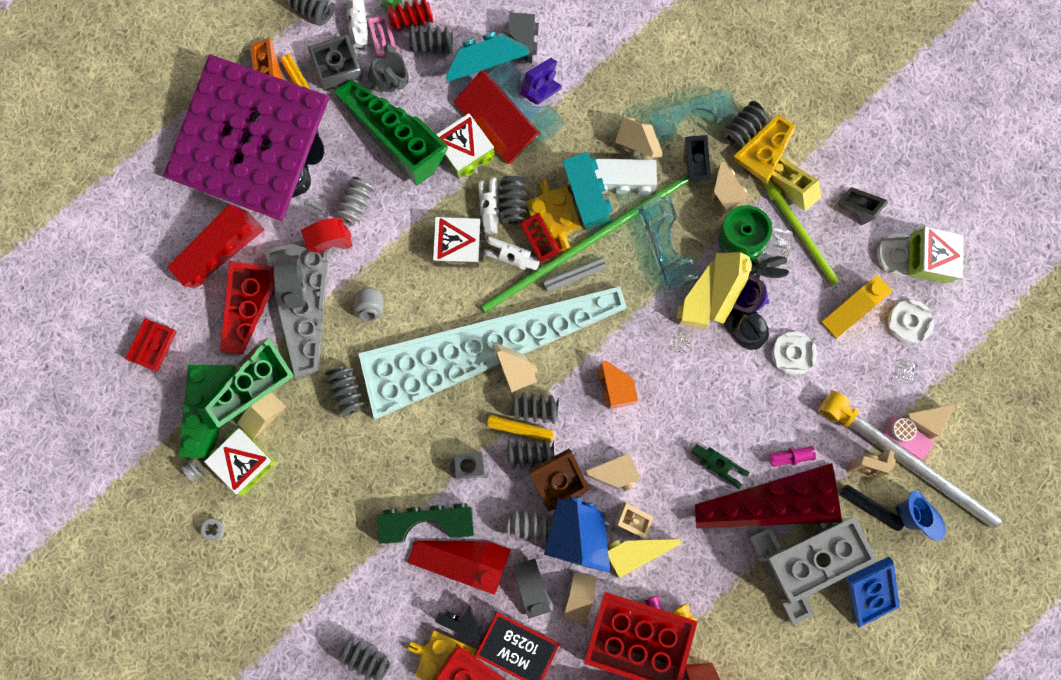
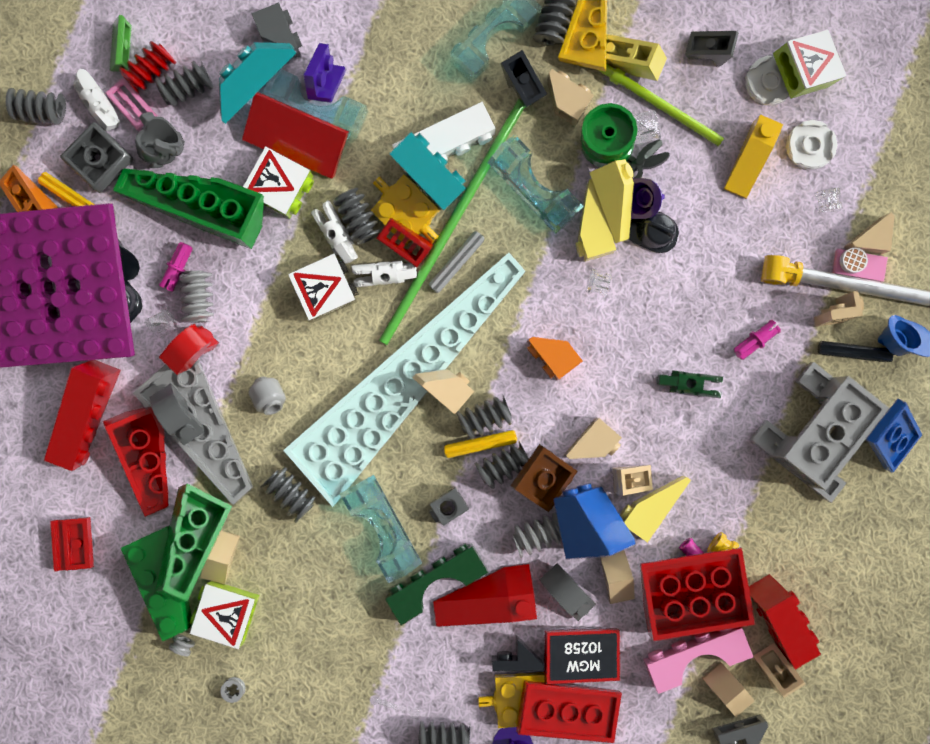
camera: 25 degrees left, 10 degrees up
(351, 170) = (176, 266): none -> dark pink axle
(407, 481) = (396, 552): none -> clear light blue arch
(638, 137) = (452, 86): tan slope -> none
(786, 355) = (705, 238): white tile -> none
(789, 500) = (776, 385): dark red wing -> none

